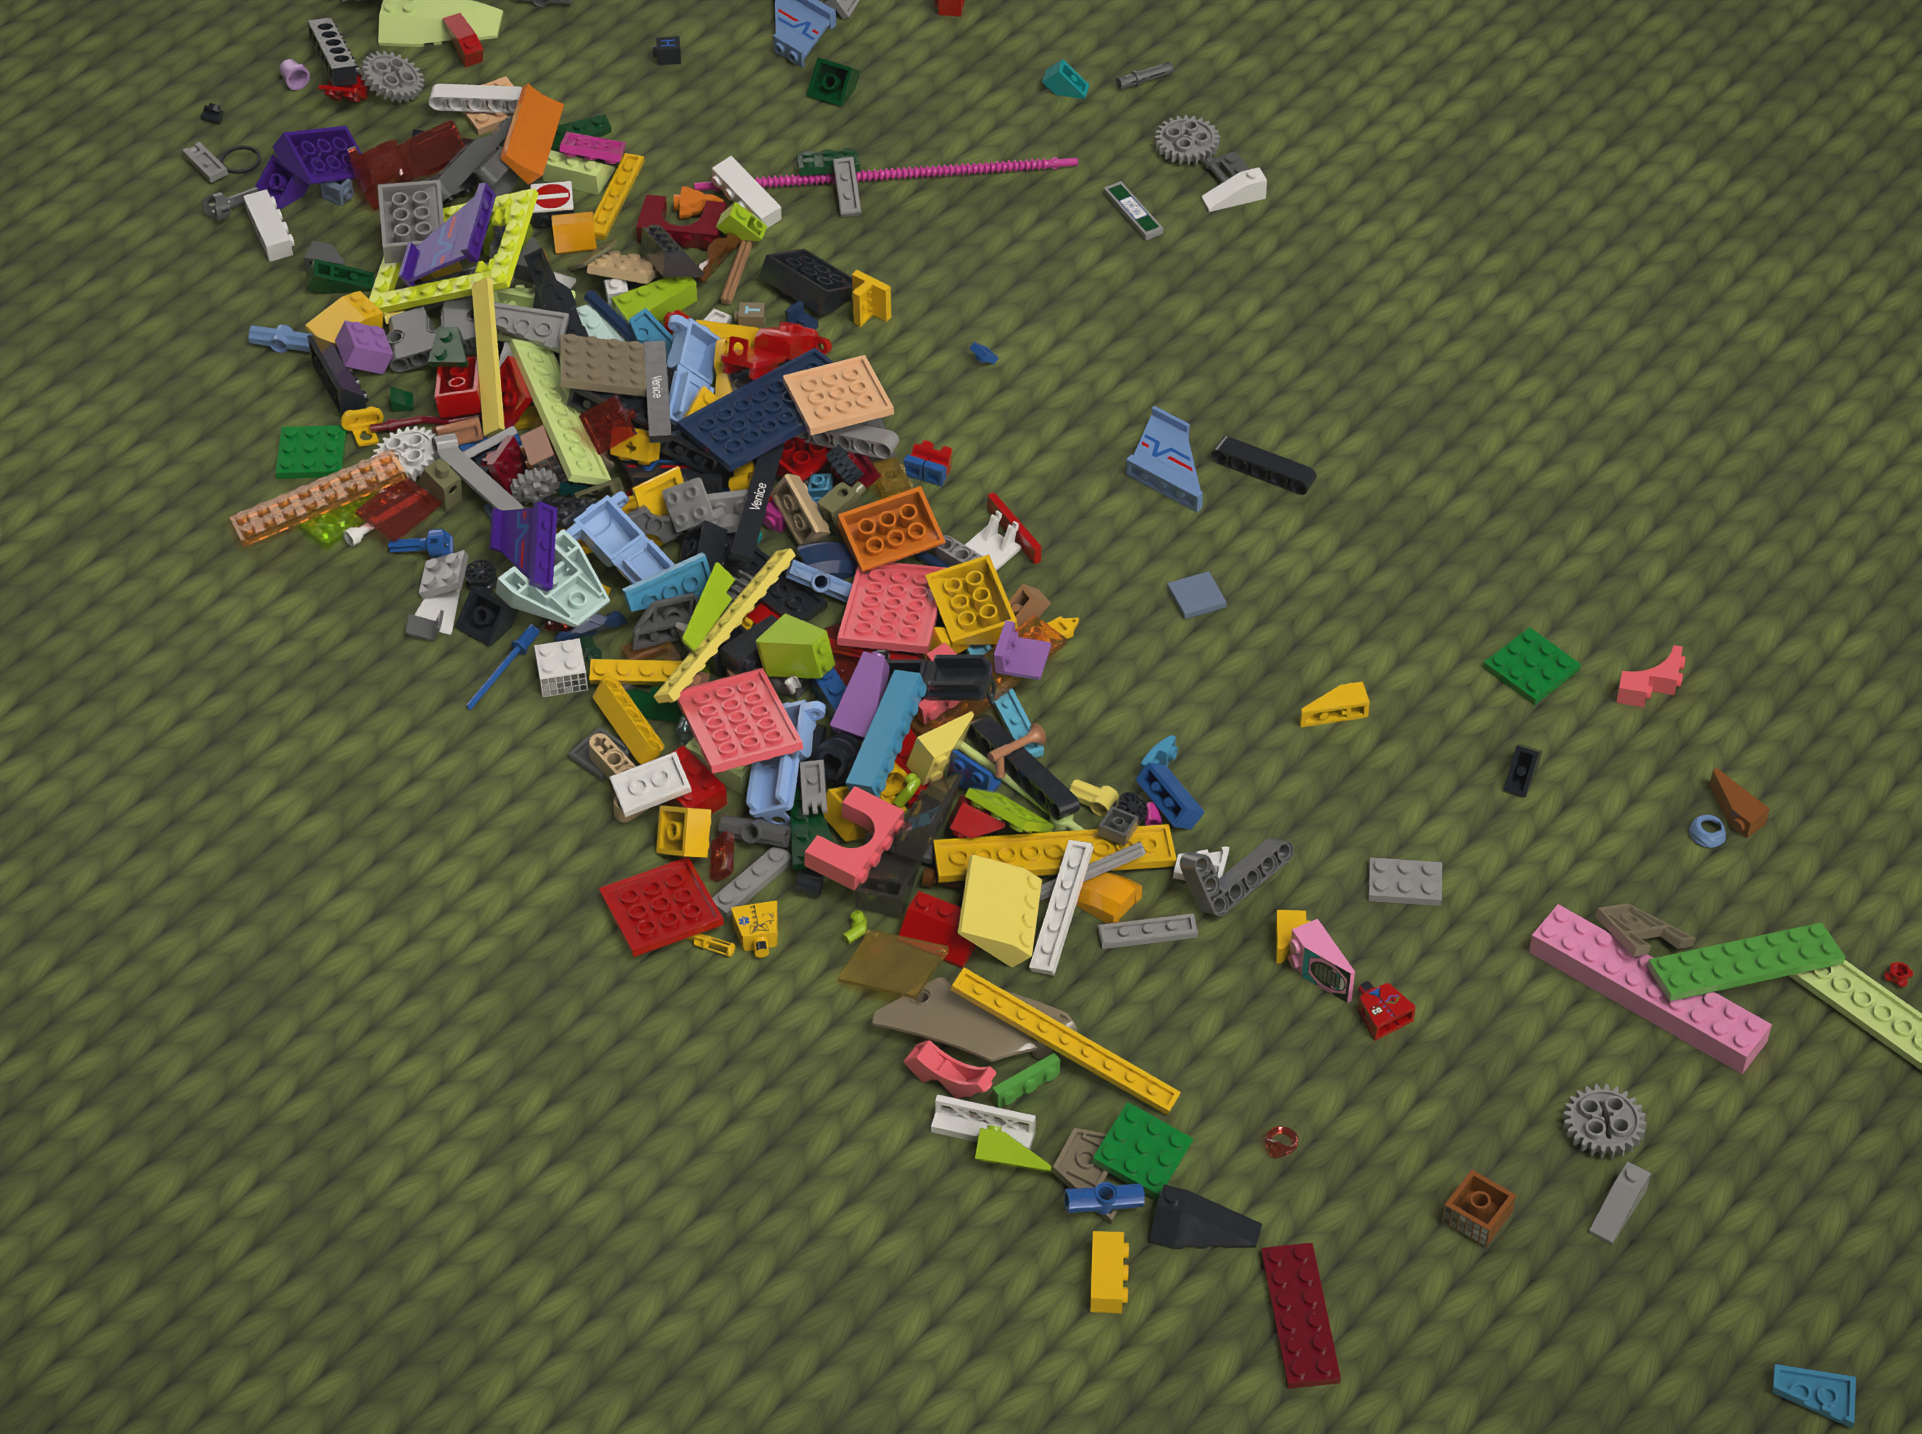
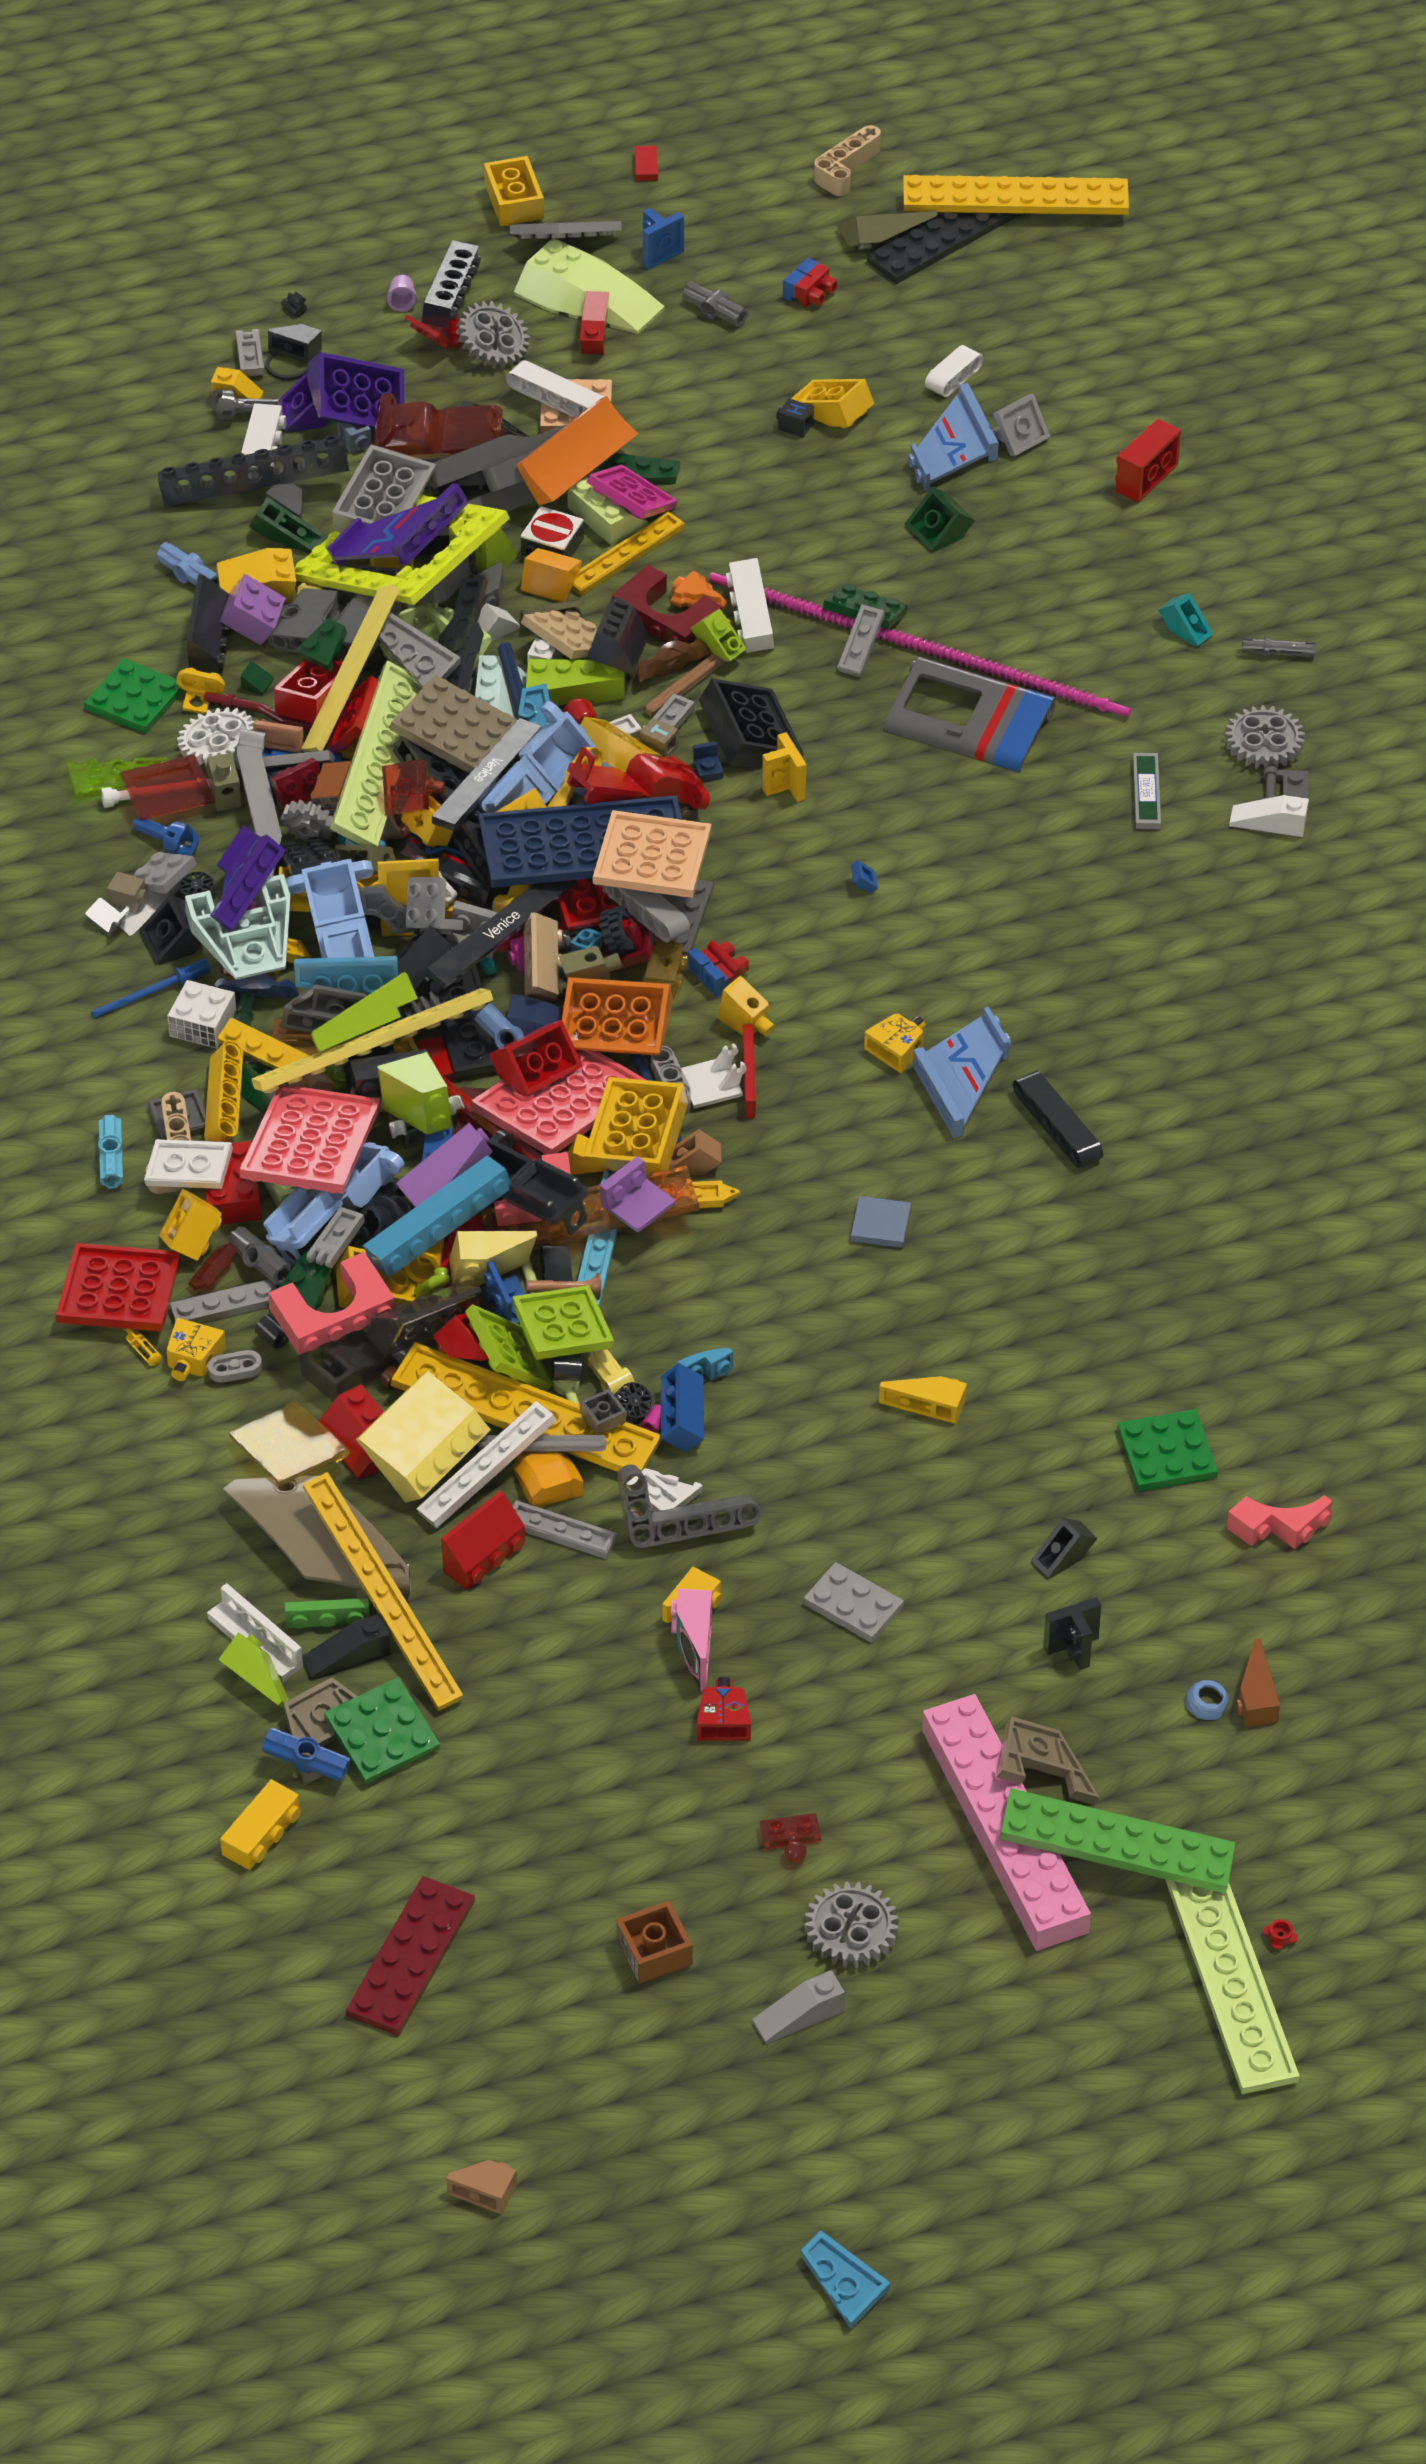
camera: 30 degrees right, 0 degrees up
(210, 185) = (237, 381): none -> yellow slope
(237, 140) = (295, 341): none -> black slope
(295, 245) = (245, 480): none -> black brick
(318, 497) = (101, 744): clear orange plate -> none
(427, 600) = (127, 891): none -> dark tan brick
(570, 805) = (111, 1151): none -> medium azure piece
(693, 25) = (837, 400): none -> yellow slope
(746, 292) = (675, 710): none -> light grey plate
(798, 925) = (234, 1366): none -> light grey plate
(859, 584) = (536, 1058): none -> red slope
(859, 927) = (289, 1394): lime arm -> none
(957, 1077) = (261, 1573): coral arch -> none
(978, 482) = (744, 1005): none -> yellow torso
(995, 204) = (998, 728): none -> dark grey piece
(1040, 771) = (562, 1322): none -> lime plate
(1064, 1099) = (350, 1647): none -> black slope
(1102, 460) = (895, 1040): none -> yellow torso
(1105, 968) = (482, 1541): none -> red slope
(1195, 1221) = (377, 1818): black wedge -> none
(1276, 1148) = (513, 1796): clear red piece -> none
(1504, 1073) = (792, 1834): none -> clear red plate
(1588, 825) = (1073, 1630): none -> black bracket

